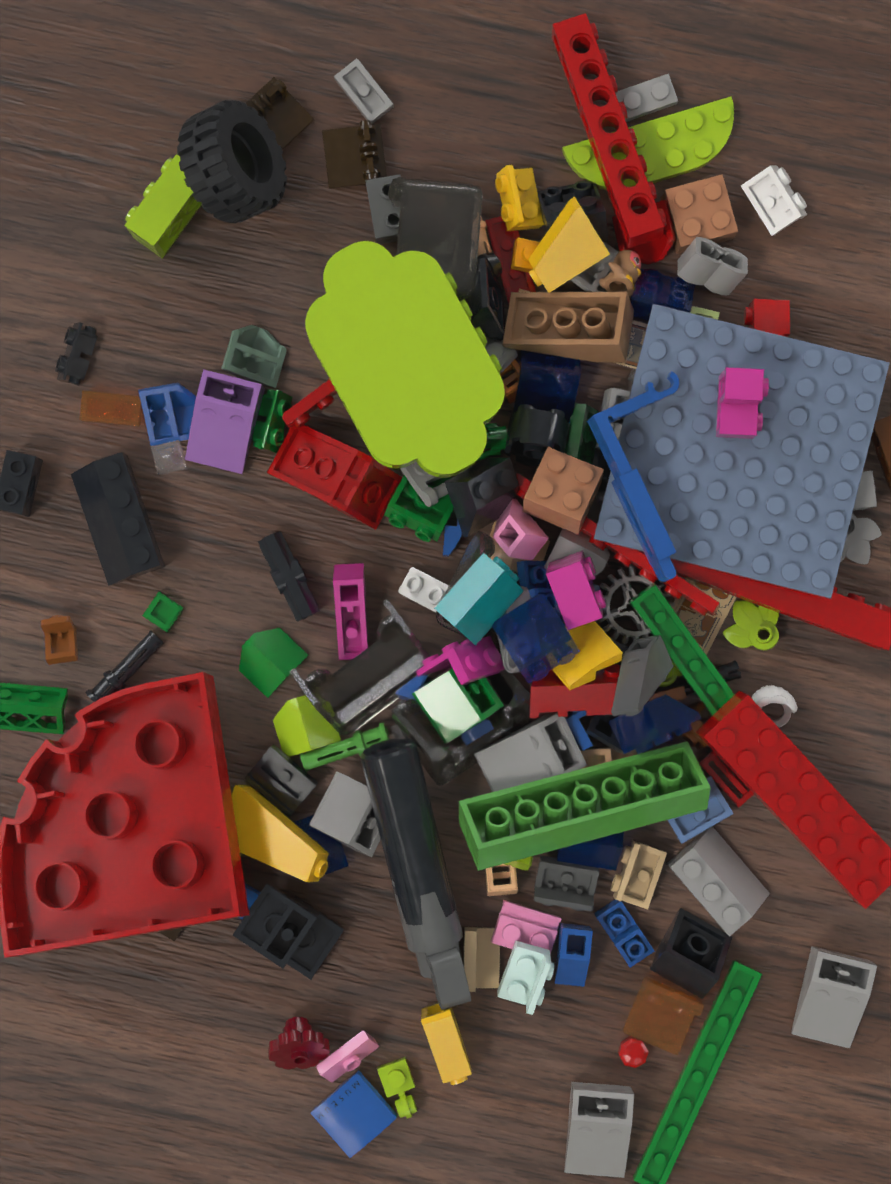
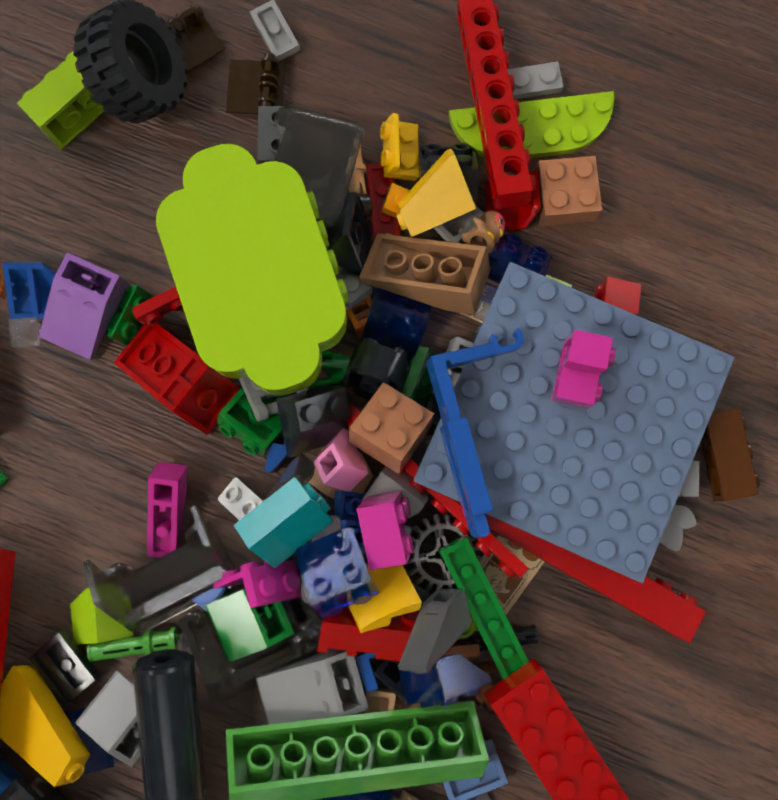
camera: 10 degrees right, 5 degrees down
(254, 356) = (123, 251): sand green slope -> none
(269, 659) = (79, 540): green slope -> none
(288, 576) = (113, 465): black piece -> none
(477, 732) = (259, 658): dark blue tile -> none
(712, 266) = (572, 240): light grey brick -> none
(712, 756) = (487, 722): red tile -> none
(749, 623) = (555, 589): lime plate -> none
(775, 199) = (639, 190): white bracket -> none
(778, 695) = (570, 668): white piece -> none

